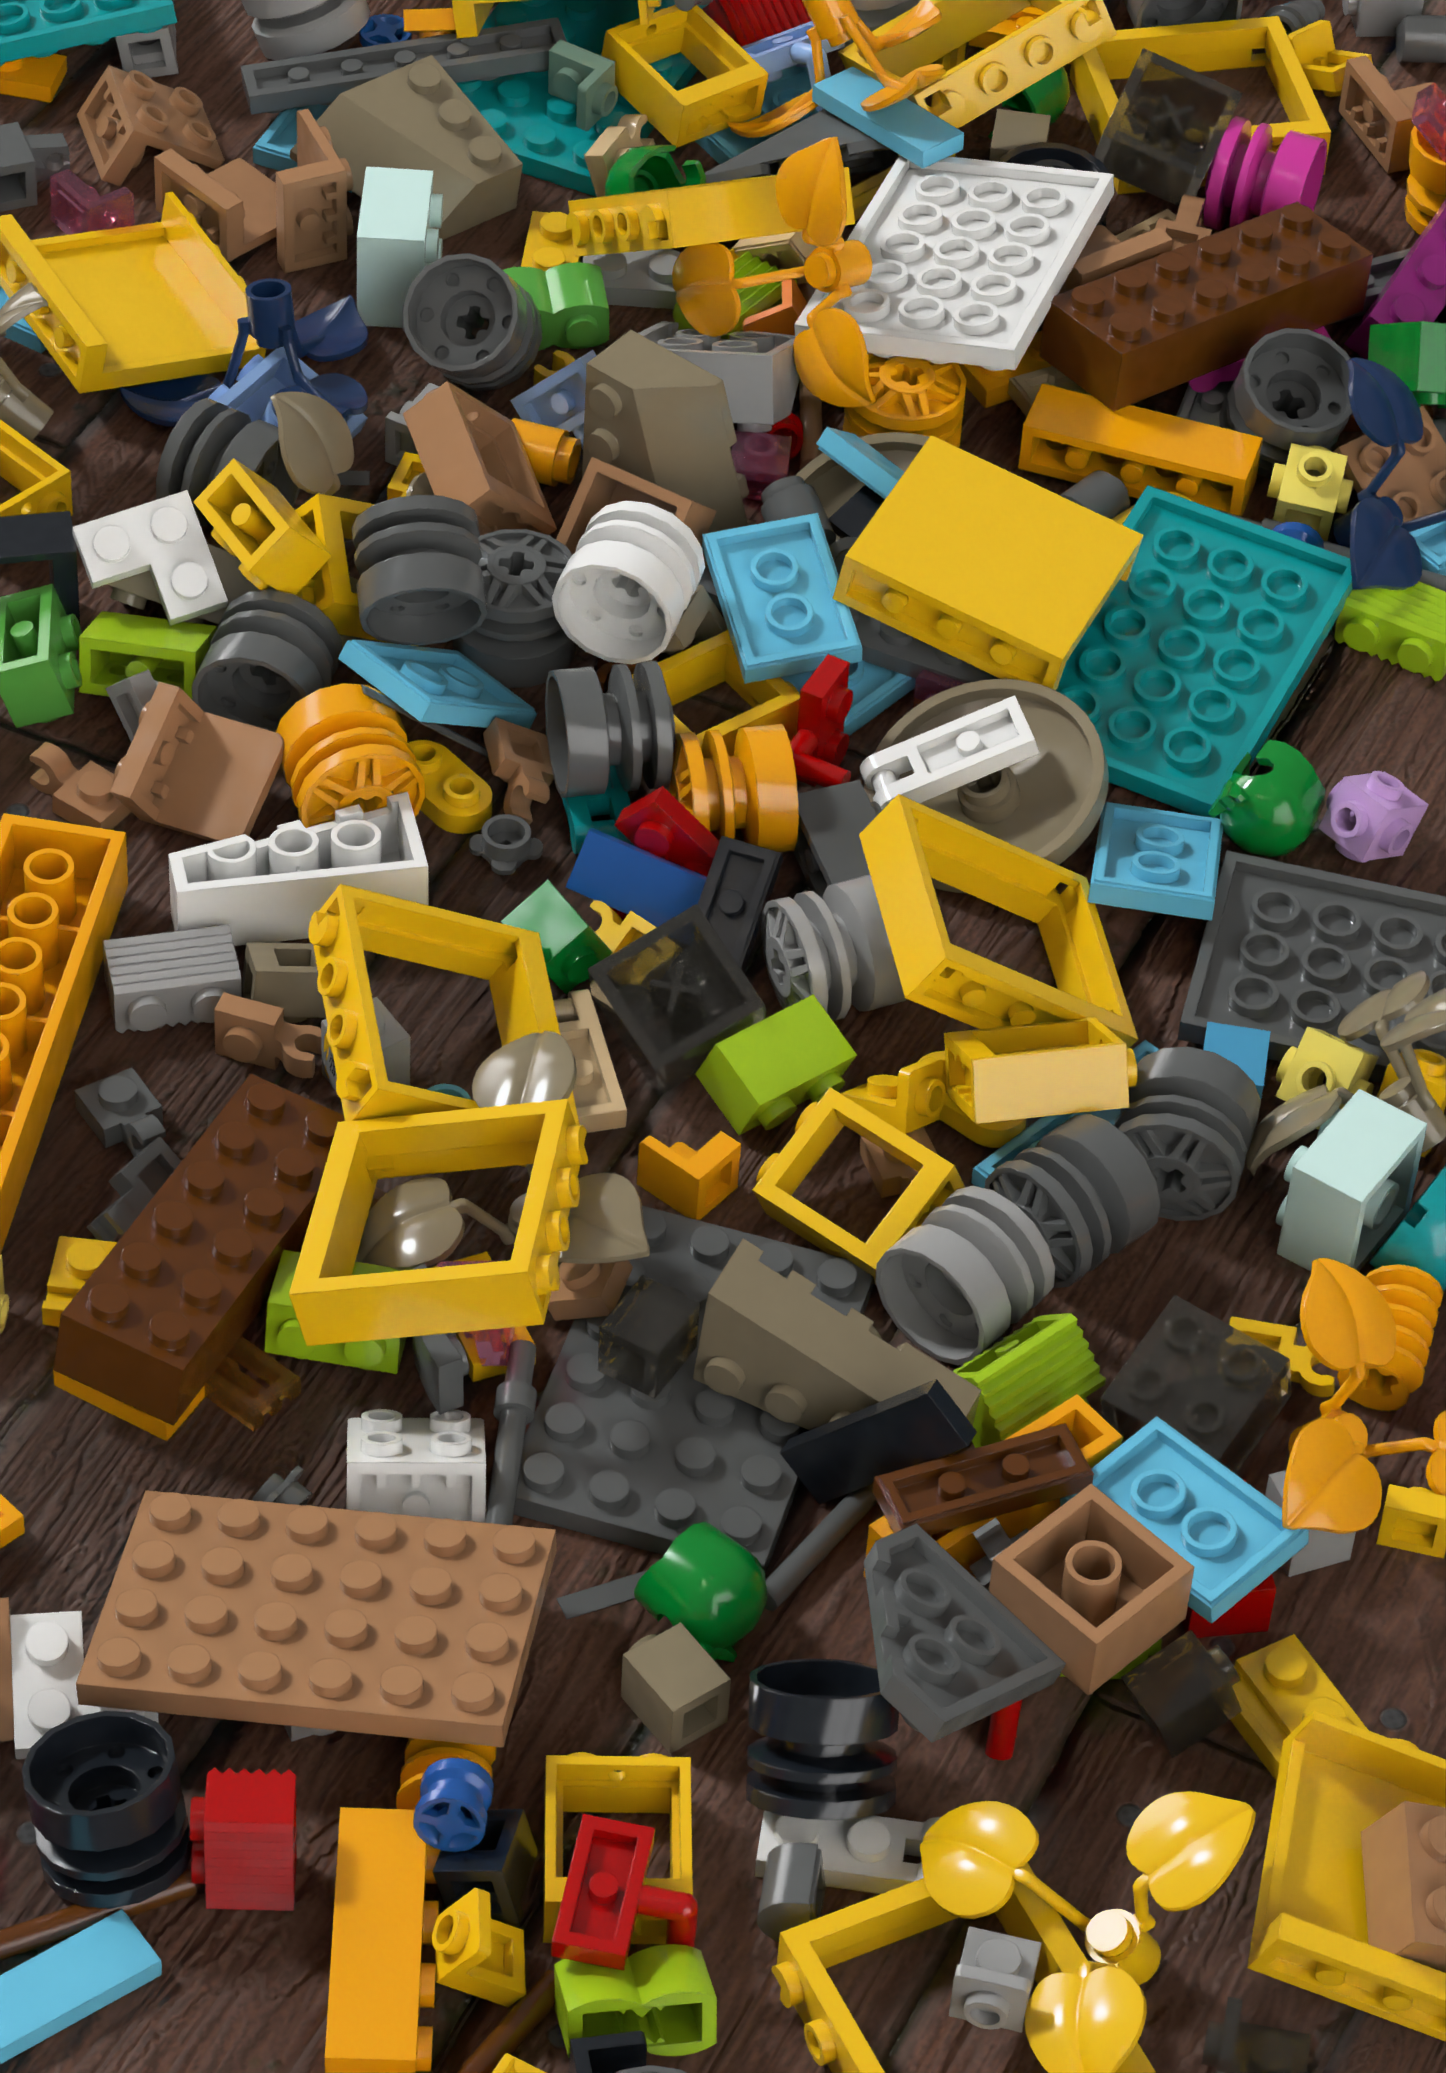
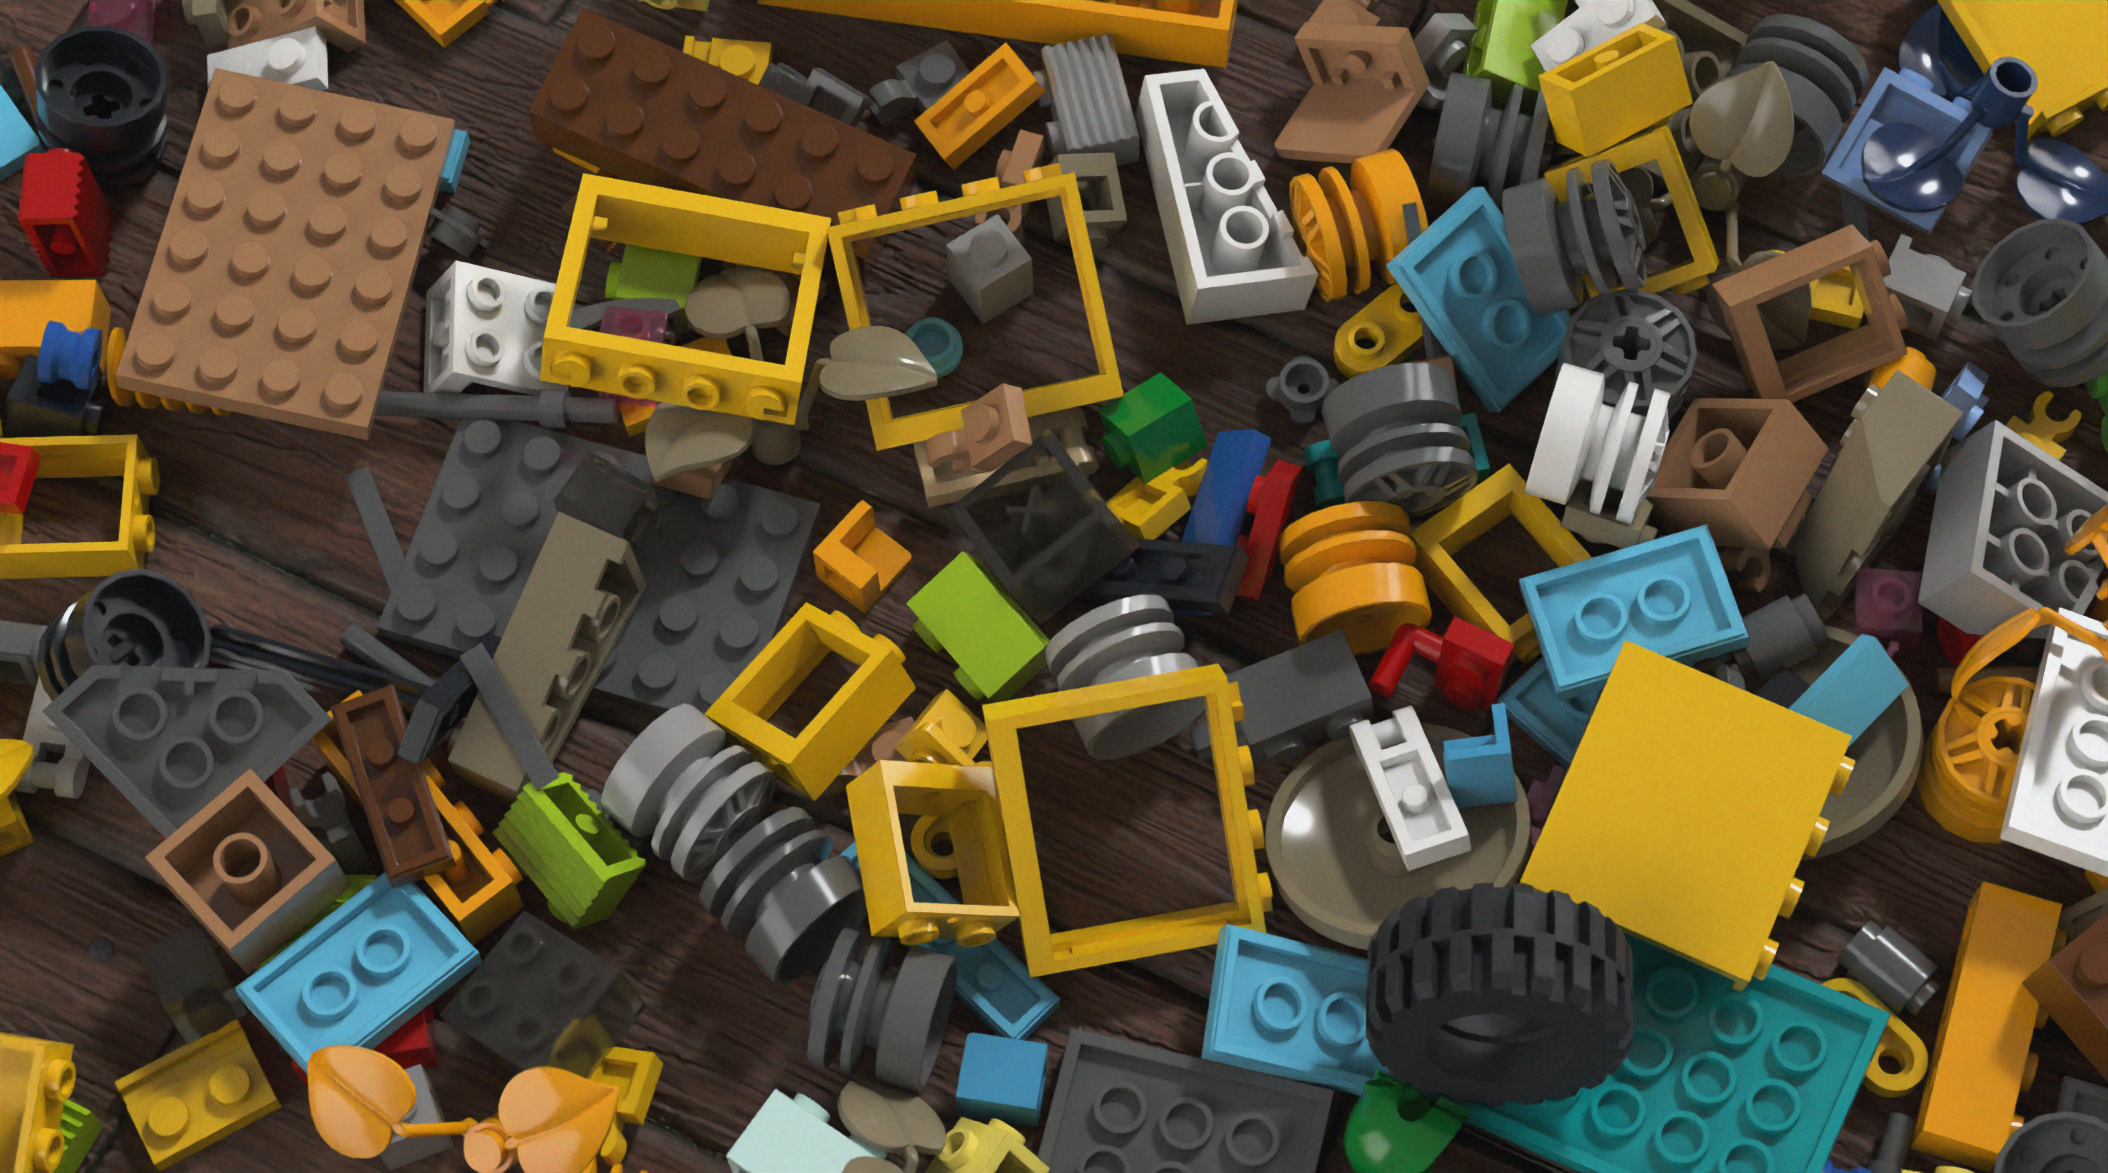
camera: 95 degrees right, 20 degrees up
(169, 1055) = (979, 106): none -> light orange plate
(584, 1015) = (992, 433): none -> medium nougat plate
(675, 1687) = (237, 549): dark tan brick -> none
(707, 1587) = (327, 571): green helmet -> none
(832, 1578) = (308, 668): none -> black axle
(906, 1378) = (509, 716): none -> dark grey sticker
(925, 692) = (1482, 767): none -> dark azure panel
(1180, 662) = (1499, 994): none -> black tyre

